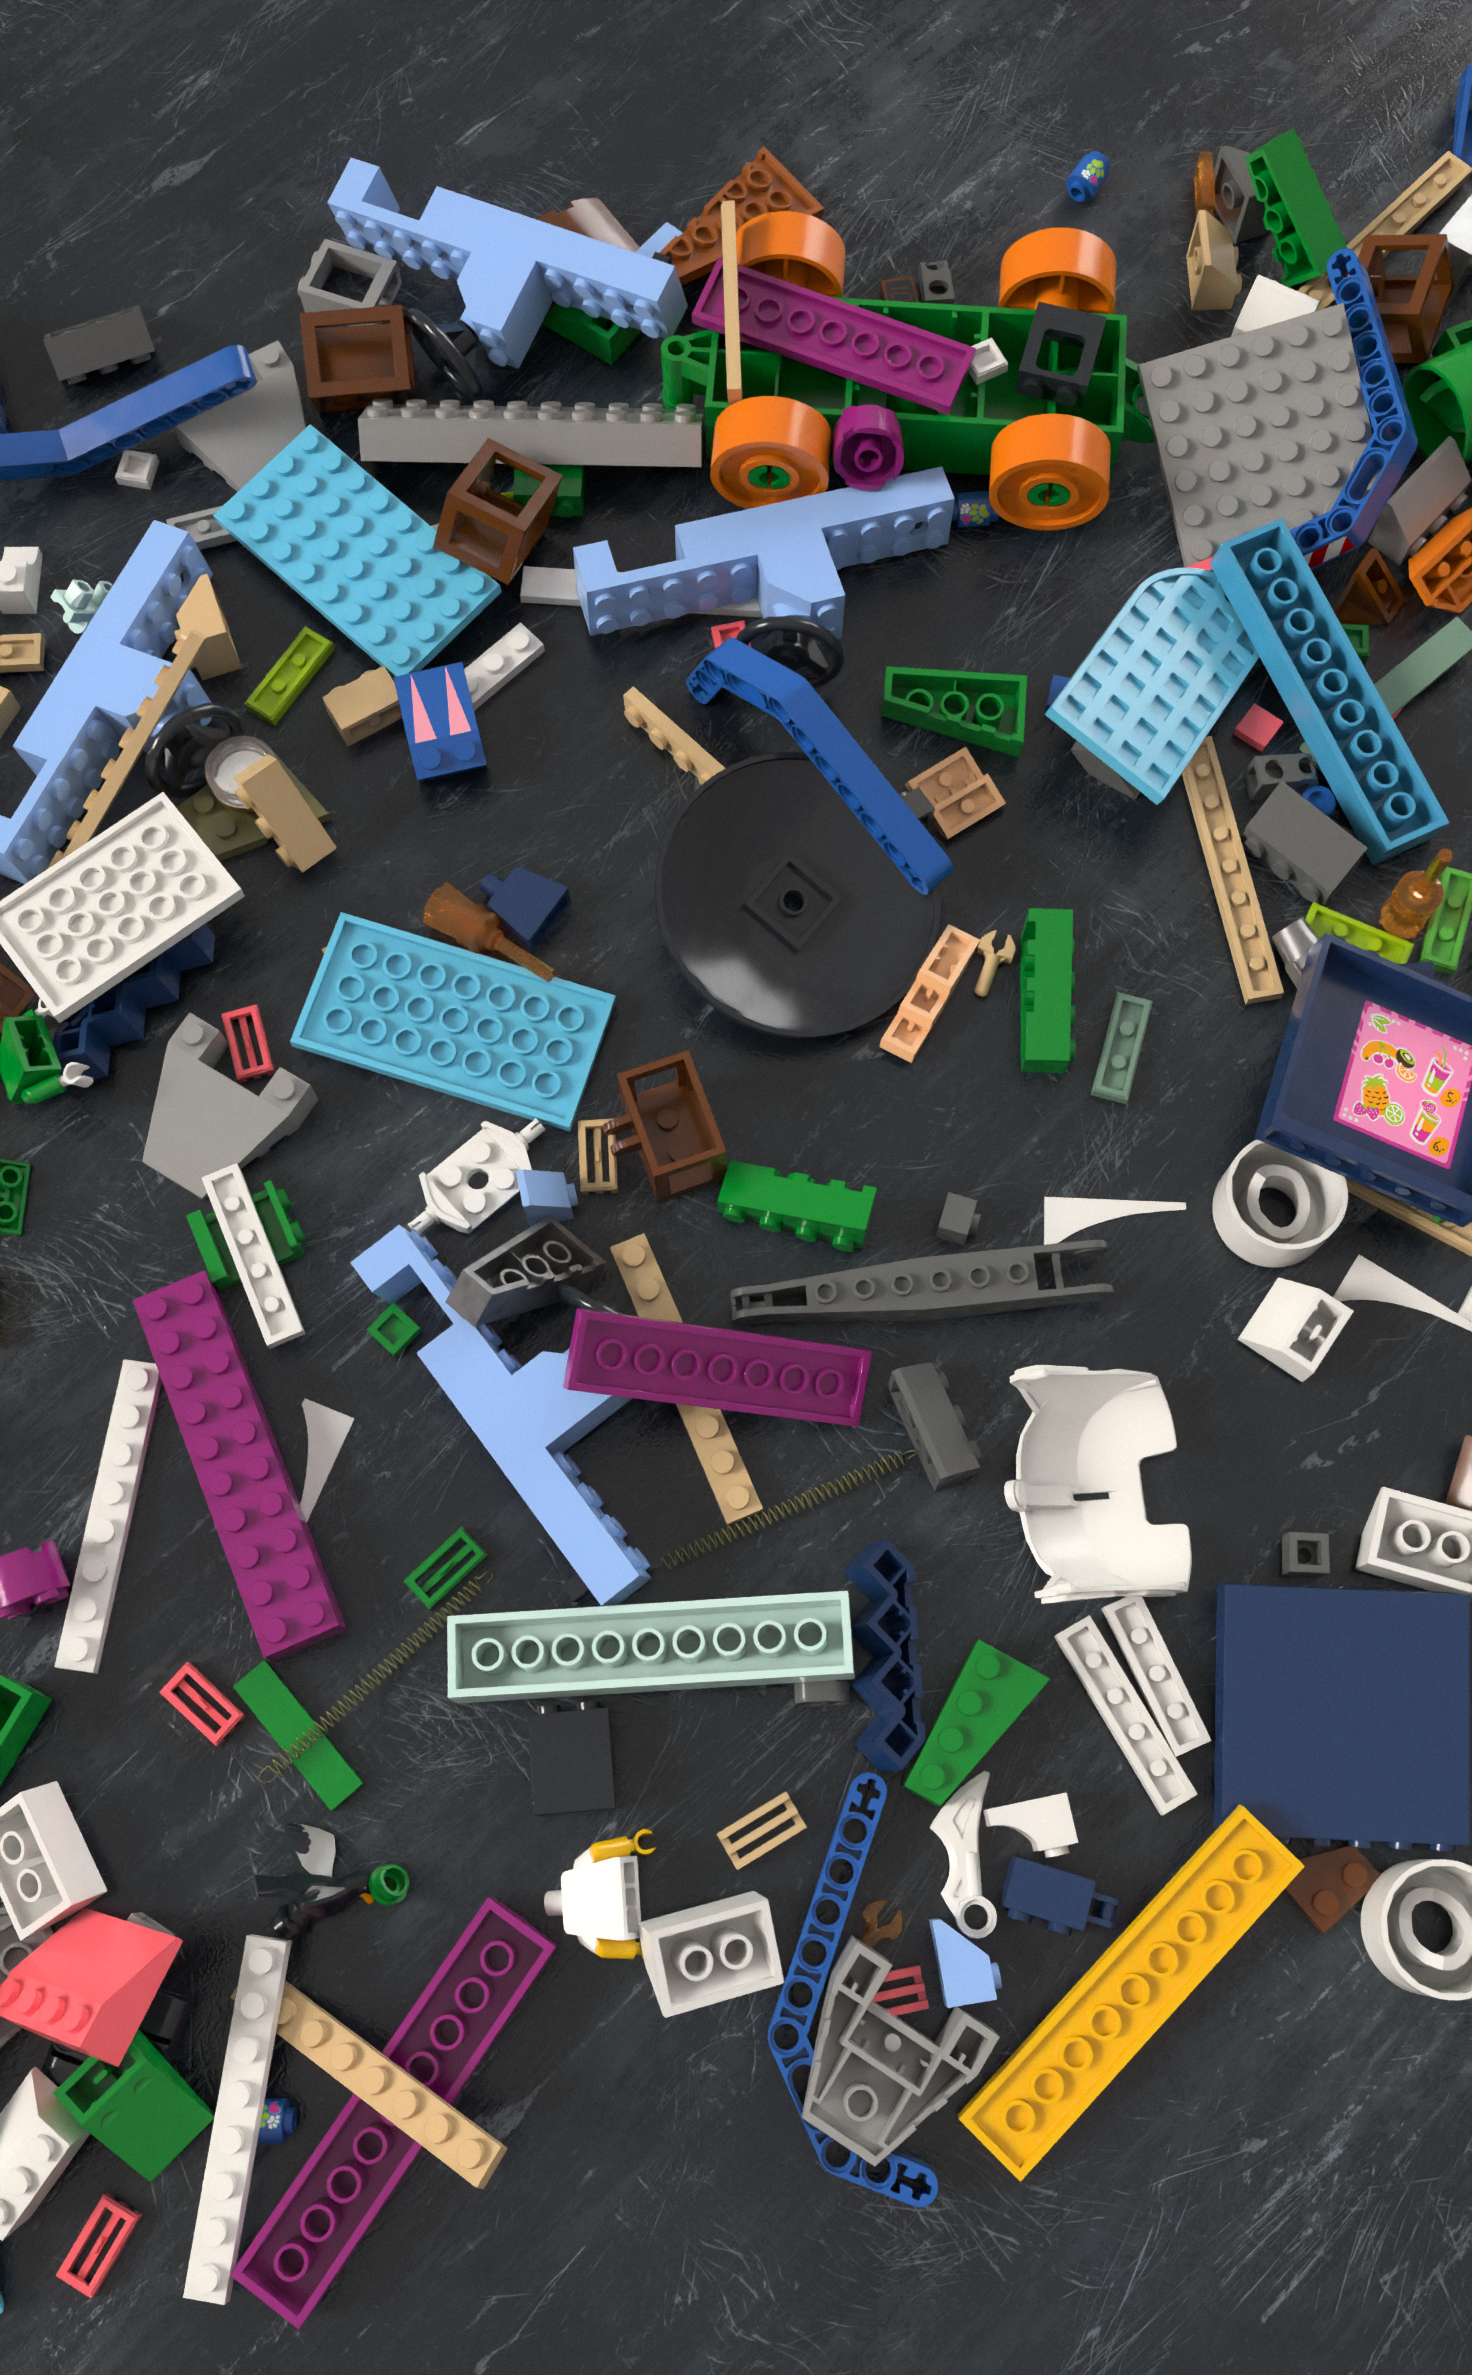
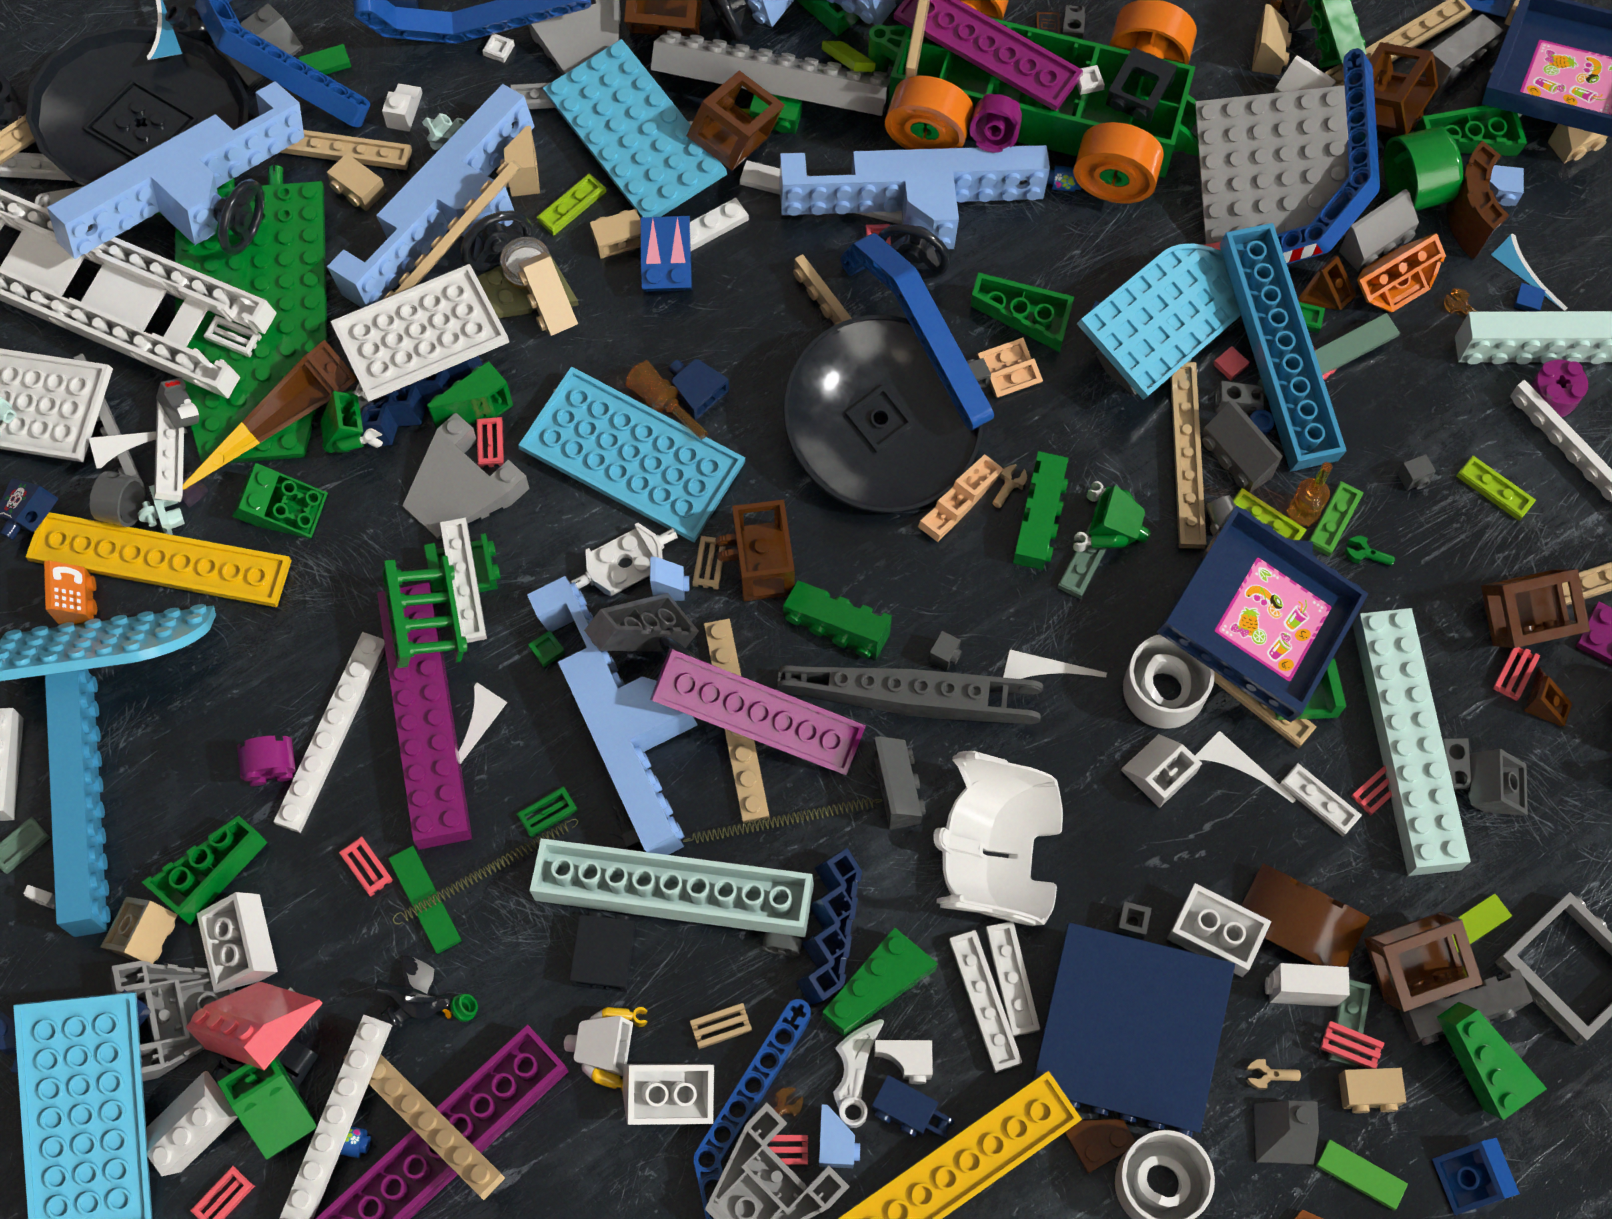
camera: 10 degrees right, 5 degrees down
(179, 1344) = (402, 625): none -> green fence
(214, 983) = (475, 397): none -> green slope
(635, 390) = (848, 56): none -> lime tile
(1152, 983) = (1115, 519): none -> green torso

